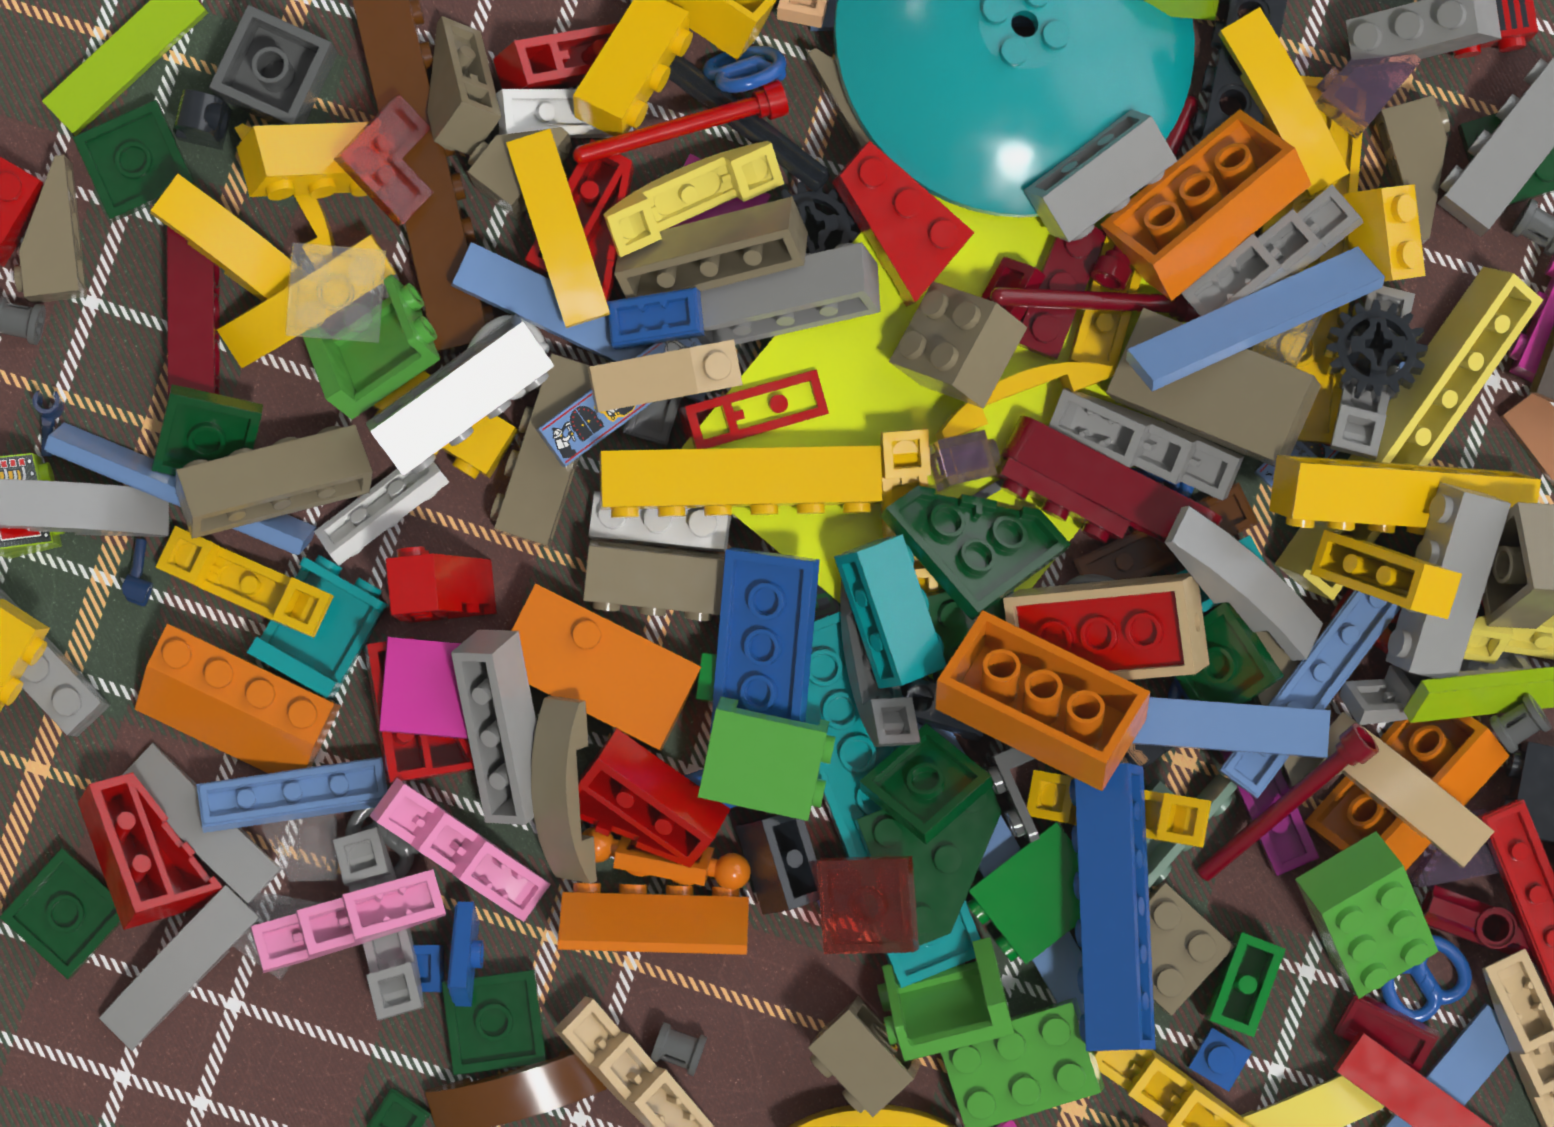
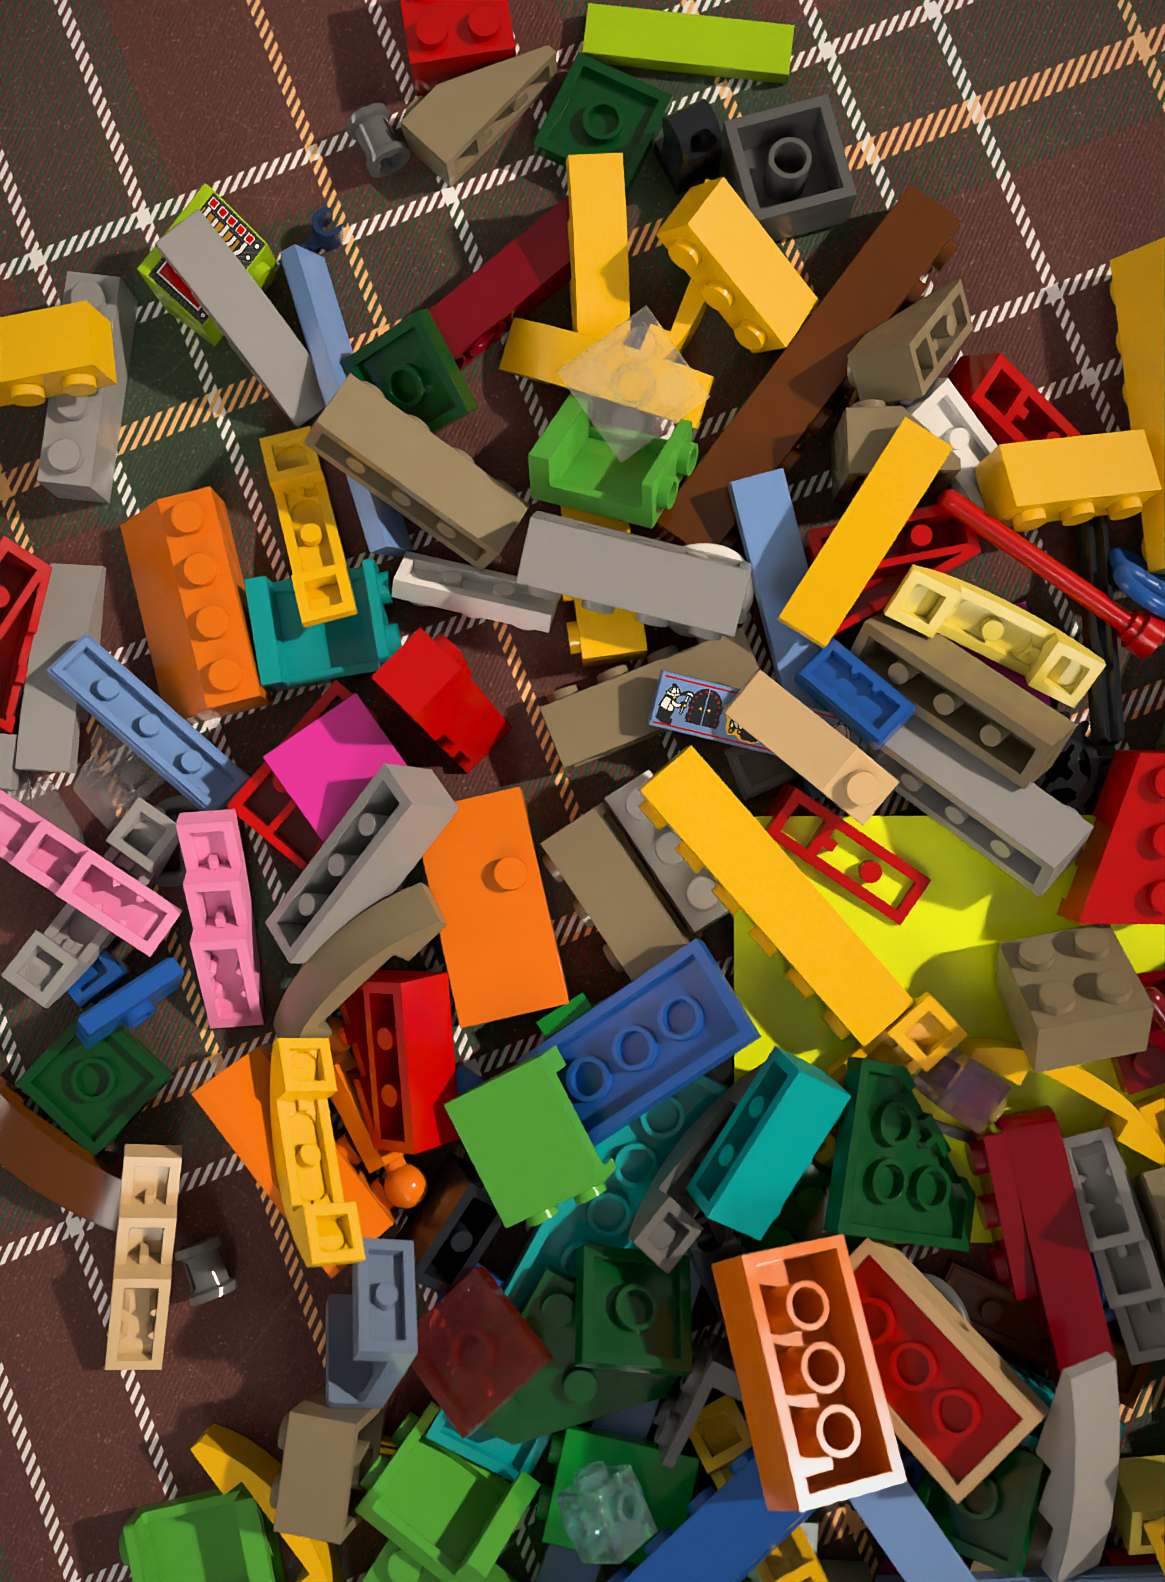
camera: 55 degrees right, 0 degrees up
(134, 588) = (227, 433): dark blue hand -> none
(377, 164) = (781, 323): clear red plate -> none
(653, 909) = (306, 1156): none -> yellow slope
(810, 961) = (373, 1329): none -> sand blue panel
(1033, 902) = (605, 1513): none -> clear light blue brick

